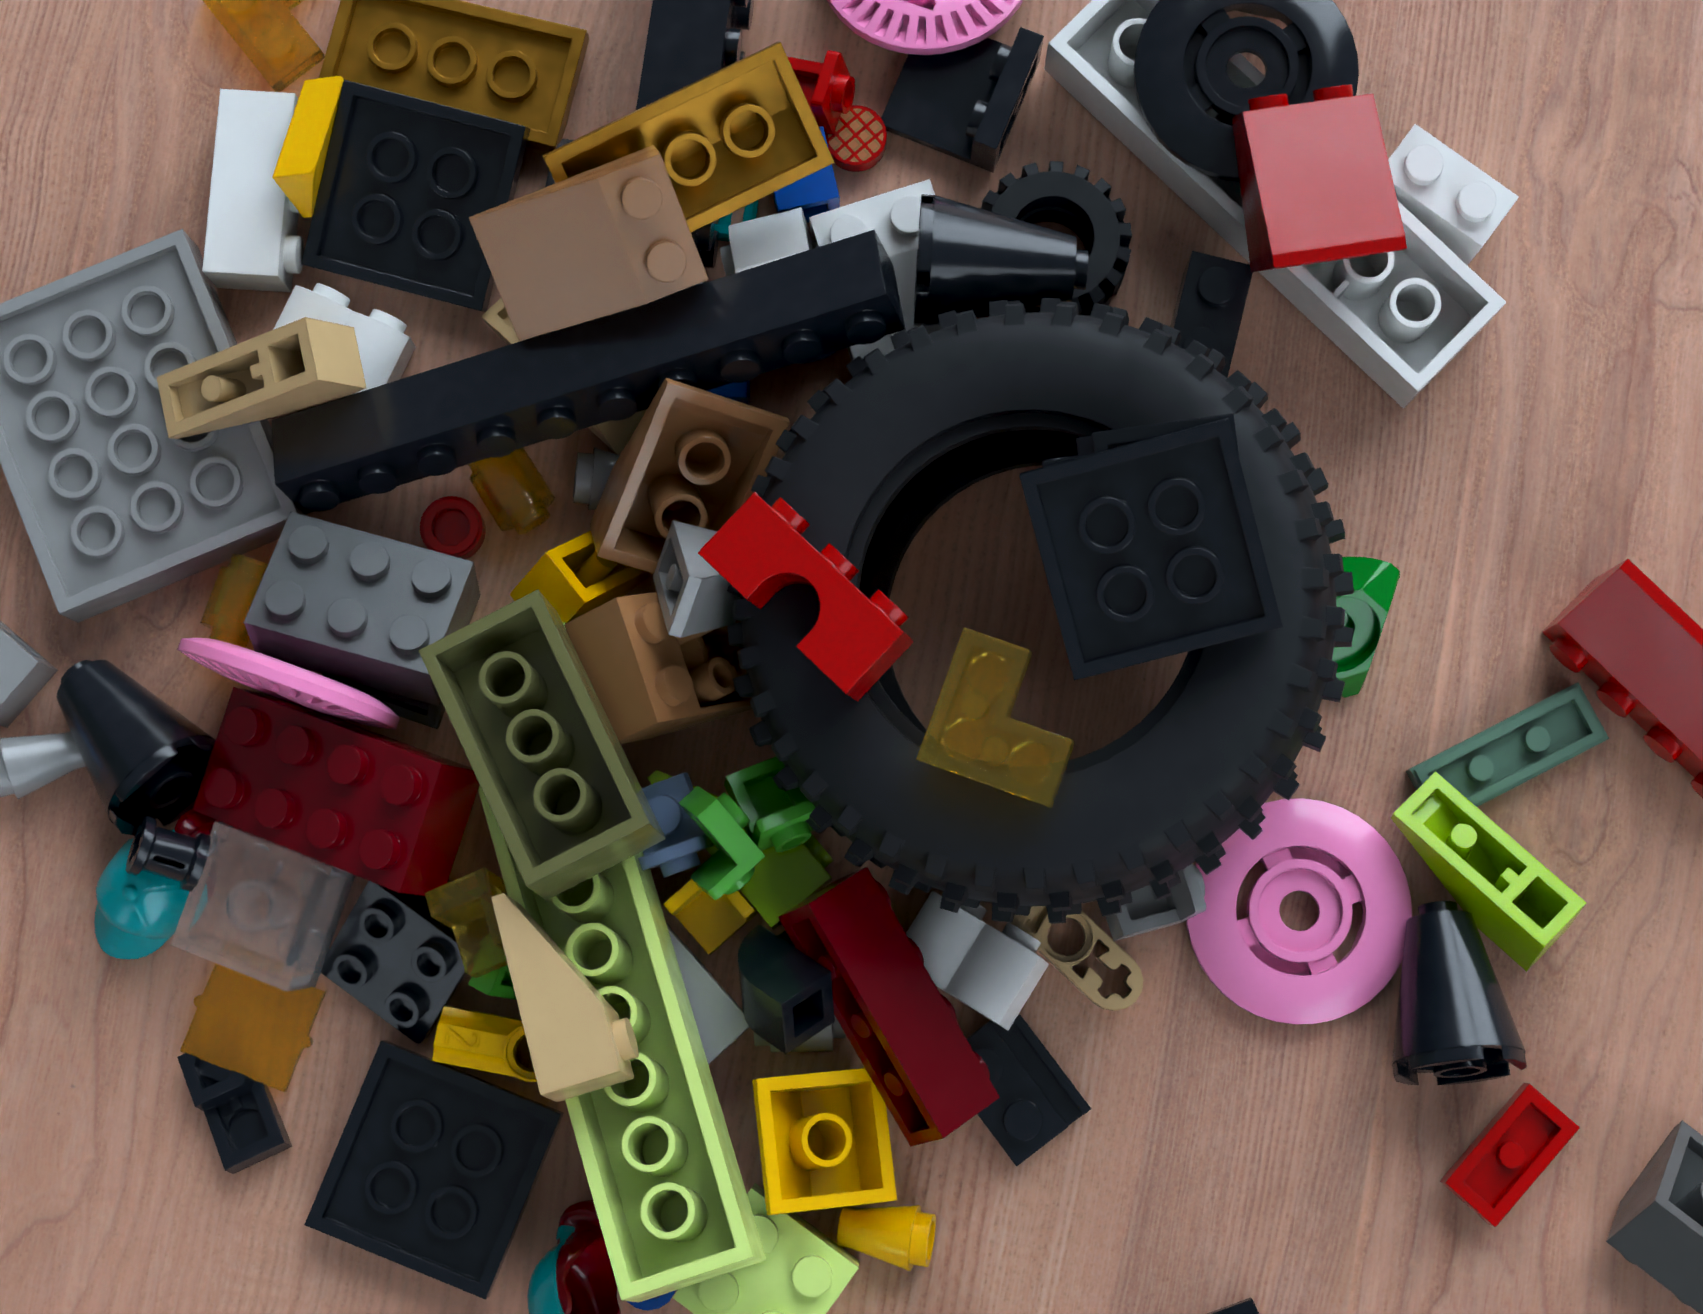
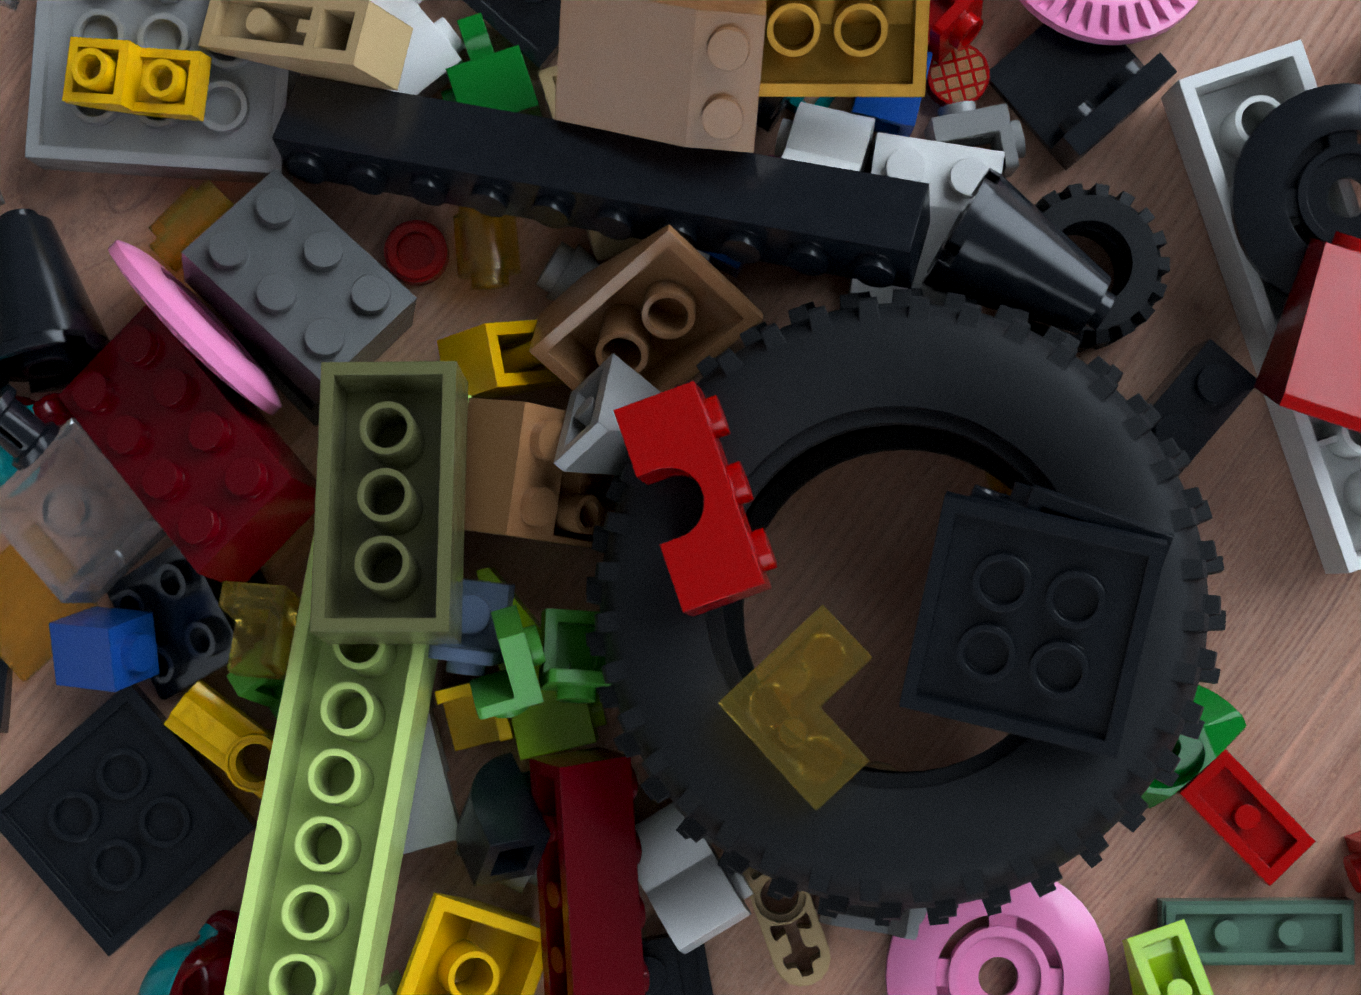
camera: 20 degrees right, 5 degrees up
(127, 494) = (136, 79): none -> yellow slope
(345, 1018) = (104, 648): none -> blue brick
(439, 338) = (490, 77): none -> green brick
(567, 1023) = (289, 763): tan slope -> none
(897, 170) = (967, 126): none -> light grey bracket
(1443, 656) = (1246, 817): none -> red plate

